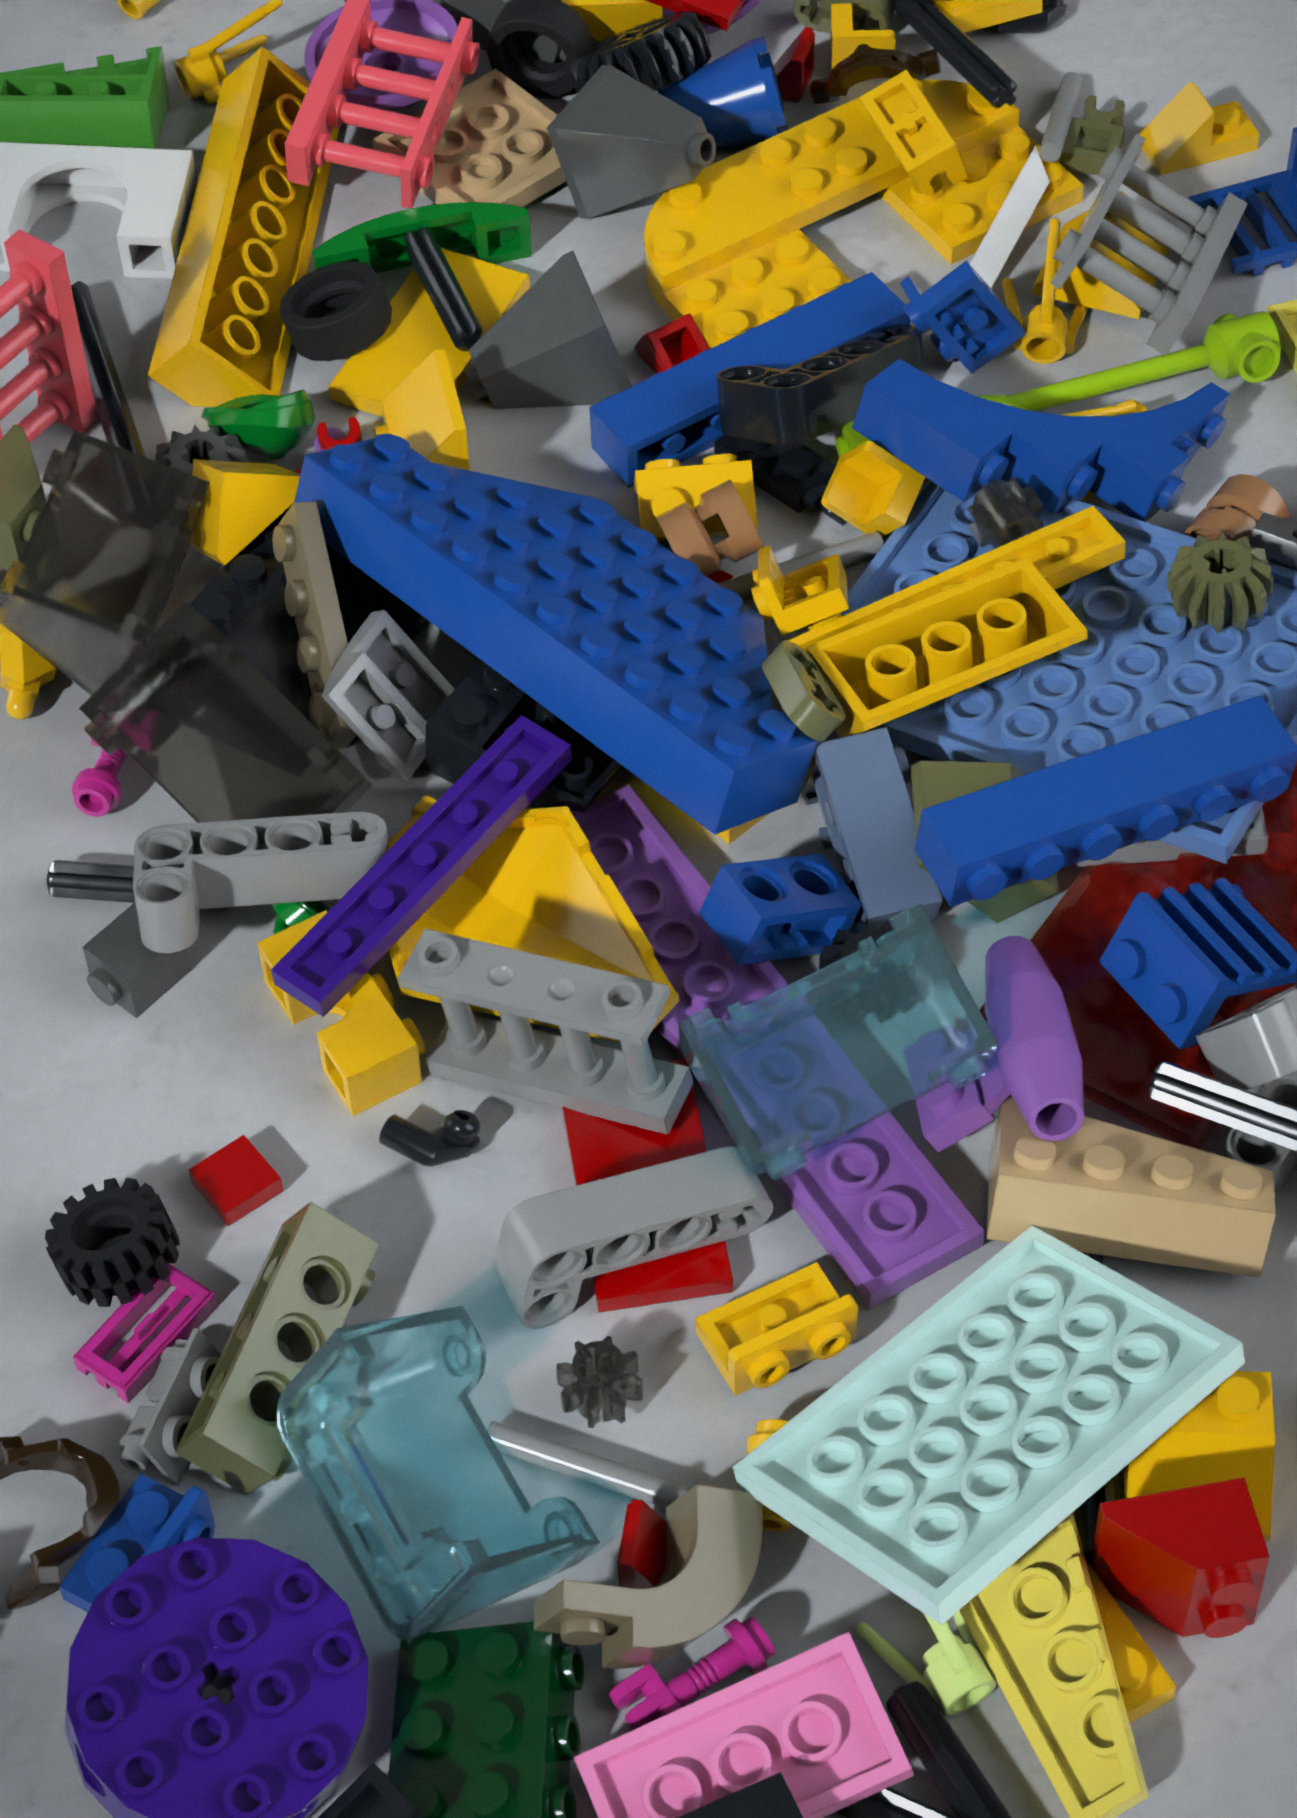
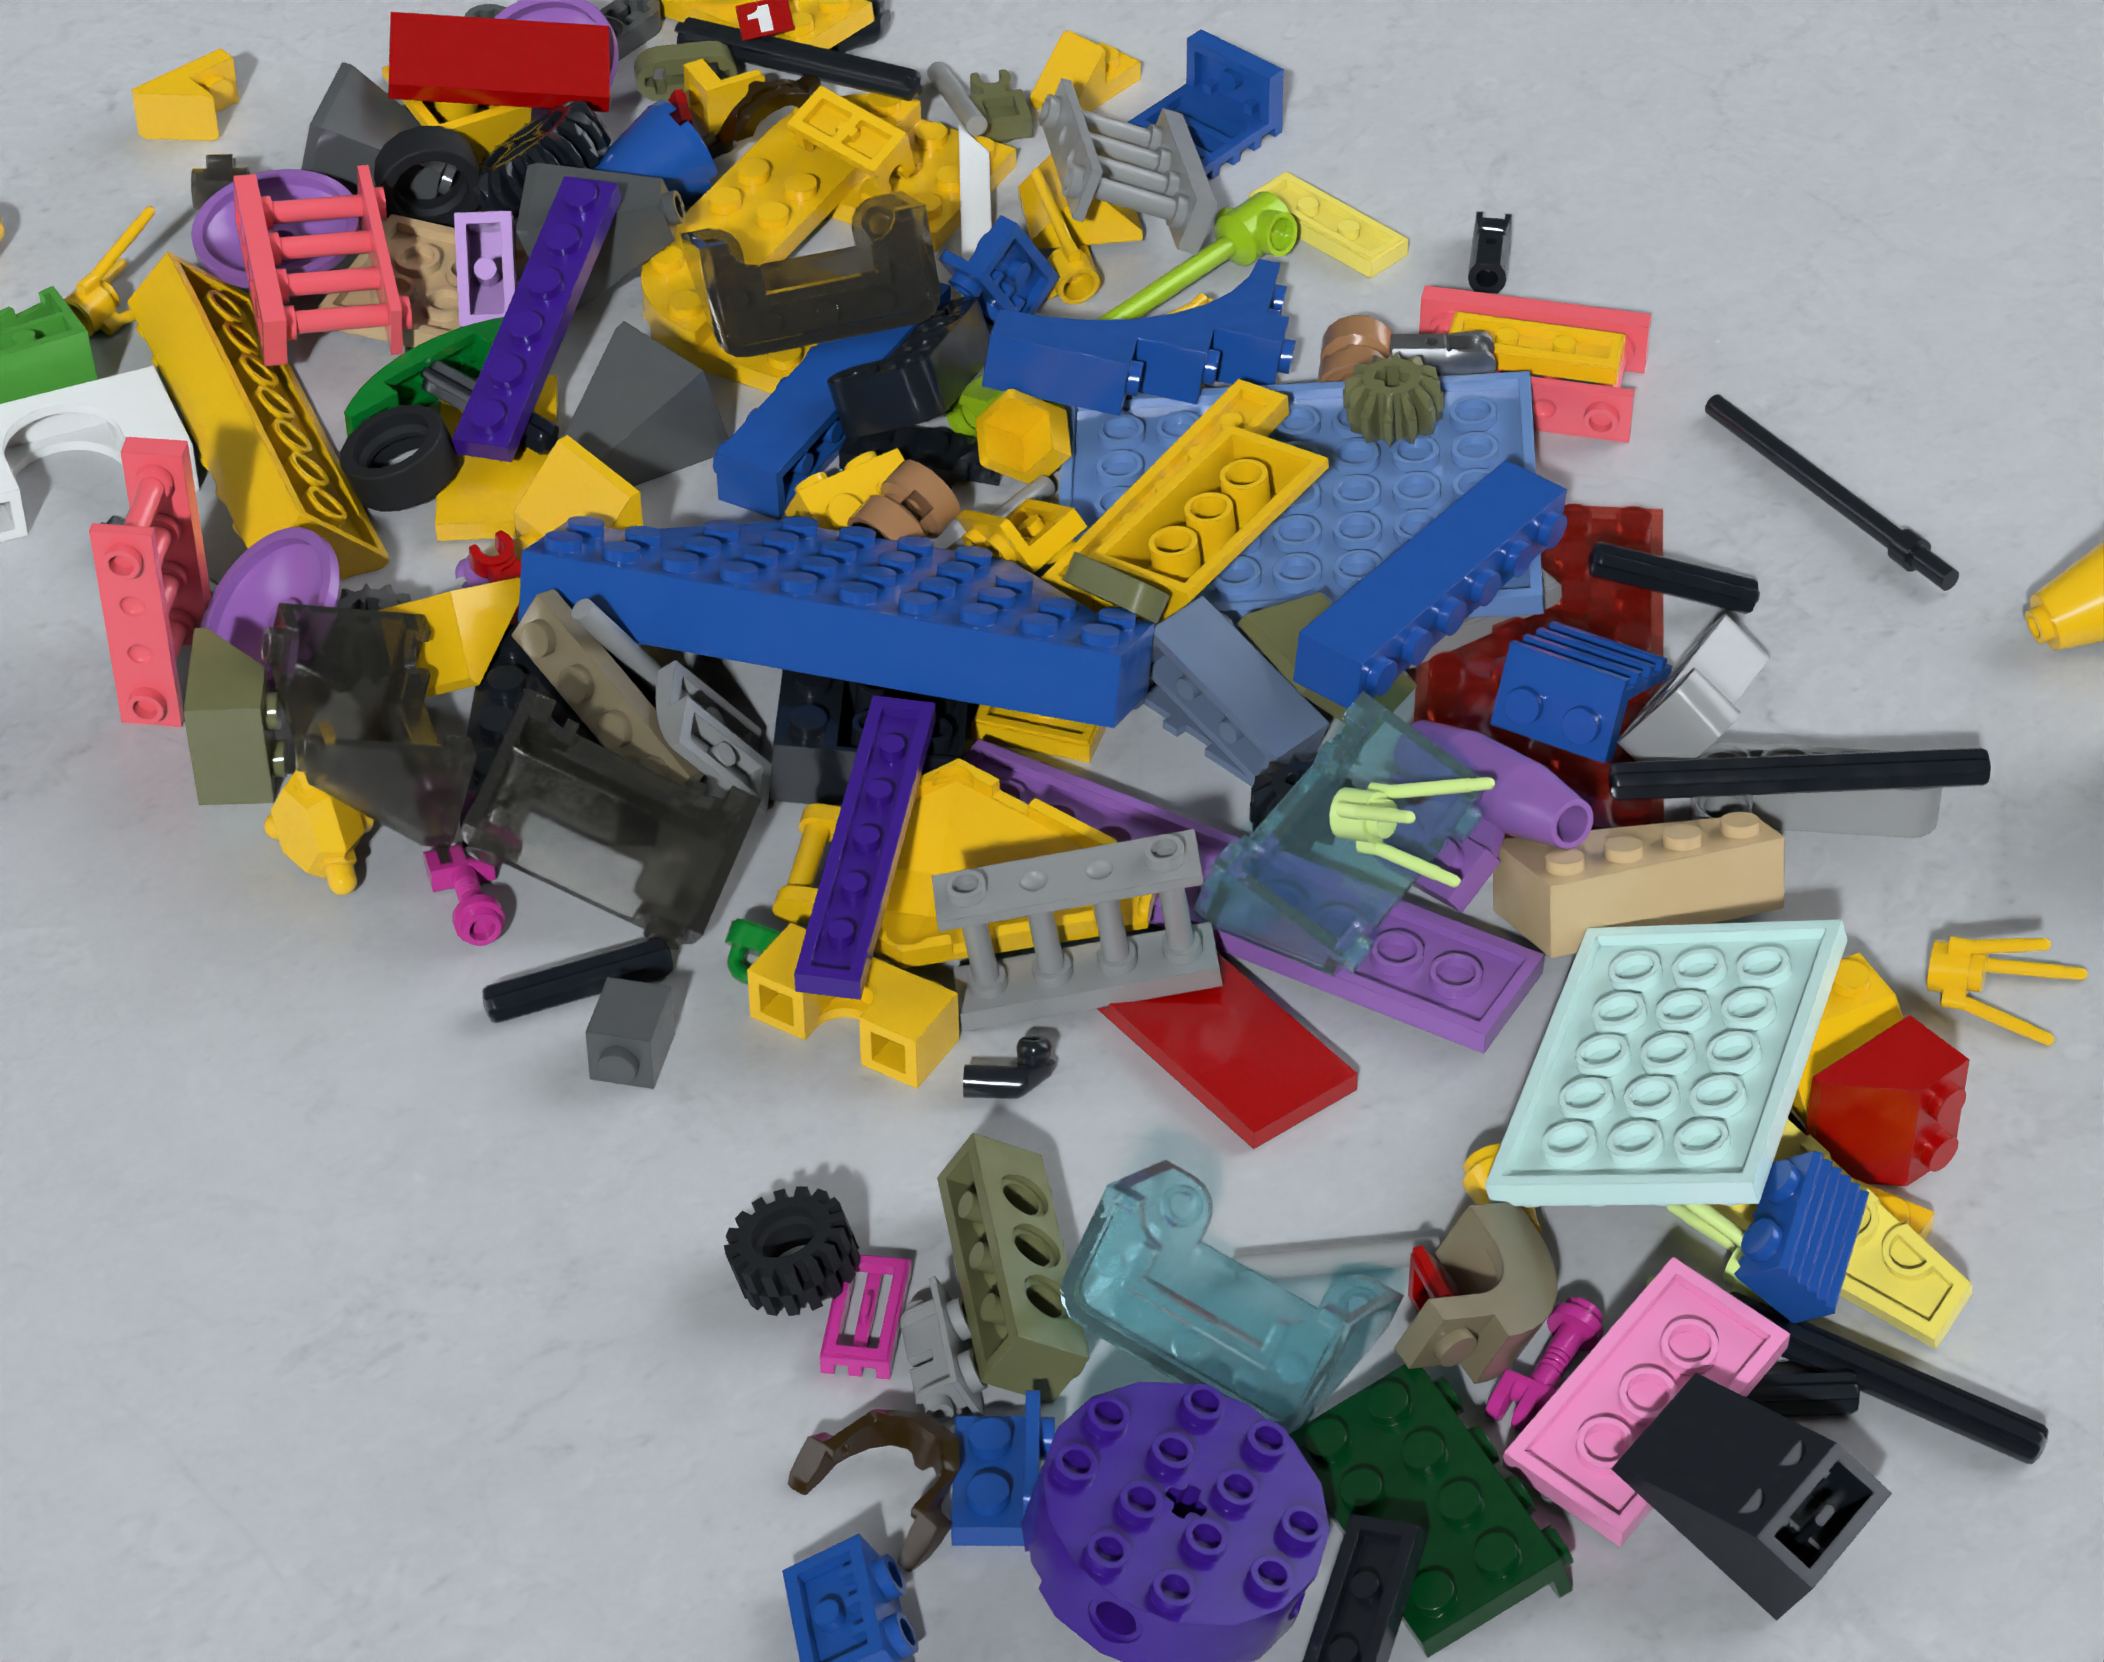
camera: 30 degrees left, 10 degrees down
(120, 408) = (280, 568): none -> medium lavender dish
(236, 1180) = (856, 1171): red tile -> none
(246, 865) = (666, 918): light grey beam -> none
(265, 422) = (411, 568): green hat -> none
(359, 582) = (616, 642): none -> light grey bar
(513, 219) = (537, 319): none -> dark purple plate
(516, 153) = (485, 264): none -> lavender slope
(599, 1381) = (1306, 1187): clear smoke gear -> none
(621, 1223) = (1240, 1060): light grey beam -> none
(671, 344) = (740, 390): red slope -> none
(771, 279) = (822, 296): none -> clear smoke windscreen
(778, 907) = (1192, 778): blue brick -> none
(778, 1329) = (1426, 1092): yellow bracket -> none
(880, 1030) = (1373, 815): none -> yellowish green plant
(986, 1669) = (1802, 1237): none -> blue brick
(1004, 513) = (1164, 411): clear smoke gear -> none

